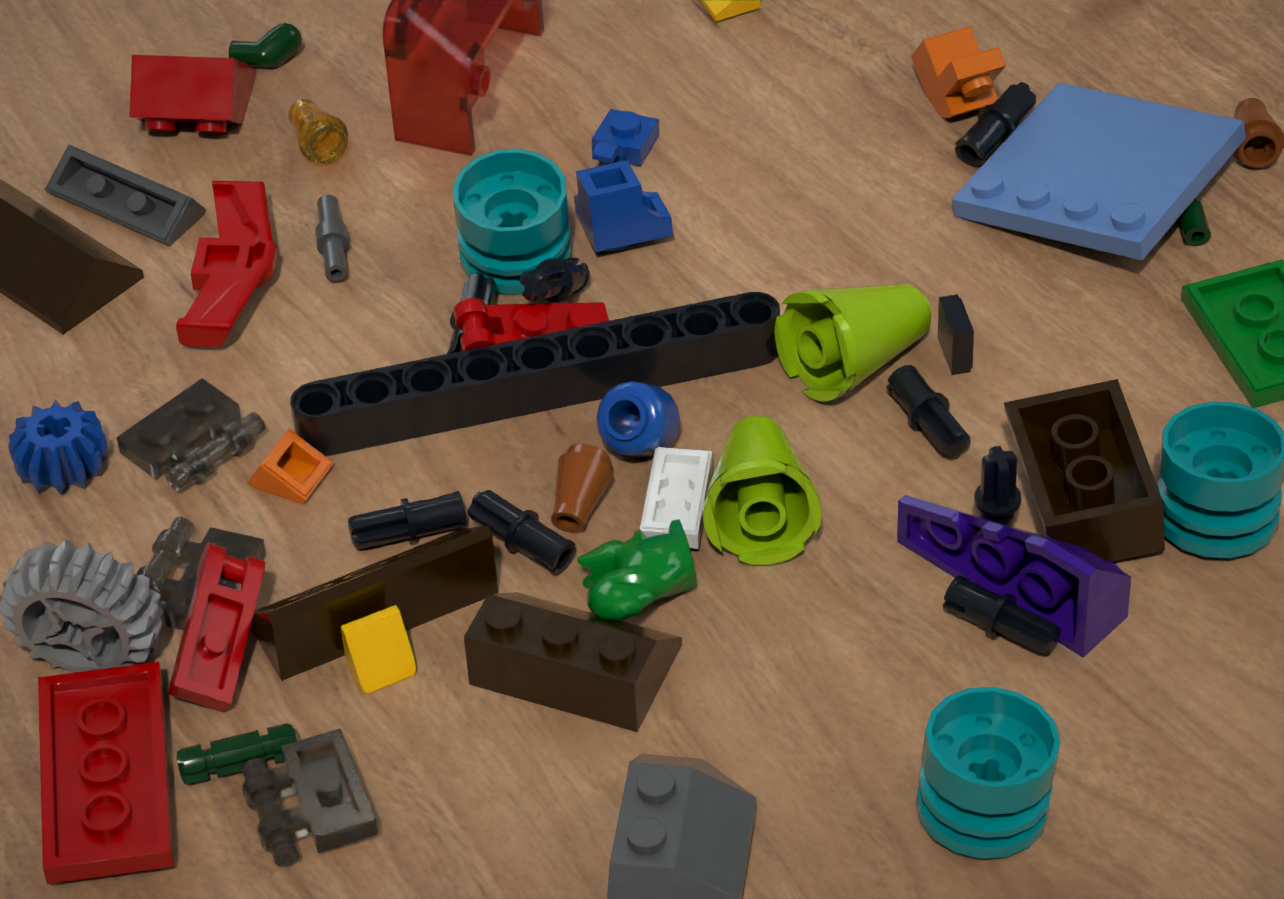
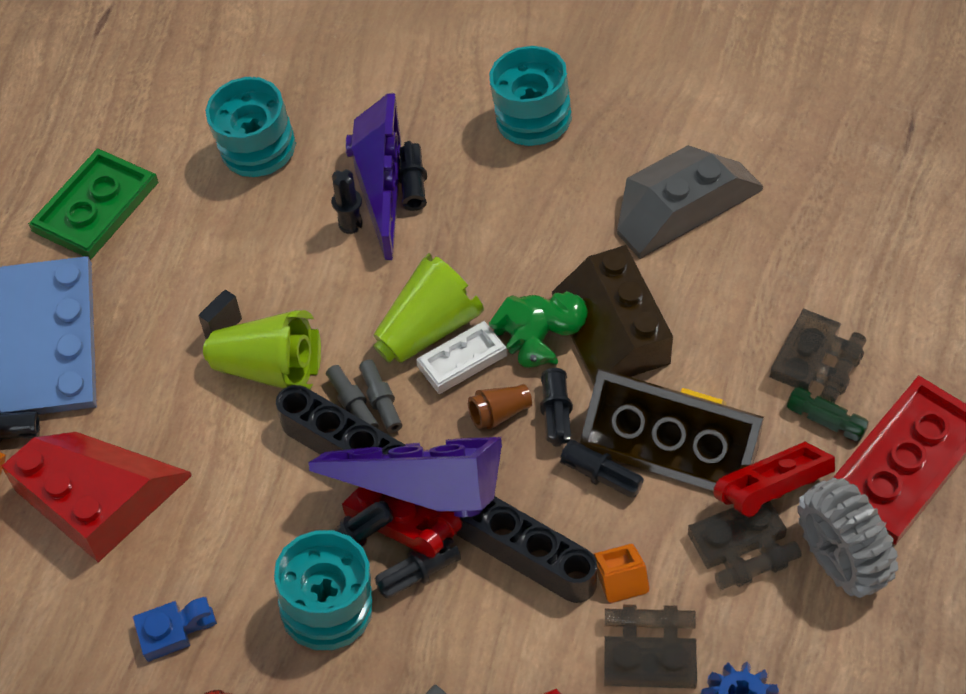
camera: 130 degrees left, 10 degrees up
(538, 332) = (444, 478): none -> dark purple wedge
(616, 208) = (248, 562): blue brick -> none
(637, 419) = (429, 402): blue head -> none
(710, 411) = (380, 396): none -> dark grey bar
(728, 387) = (350, 395): none -> dark grey bar
(842, 148) = (91, 487): none -> red wedge
(928, 411) = (291, 293): black axle -> none
(1089, 470) = (286, 179): dark brown slope -> none

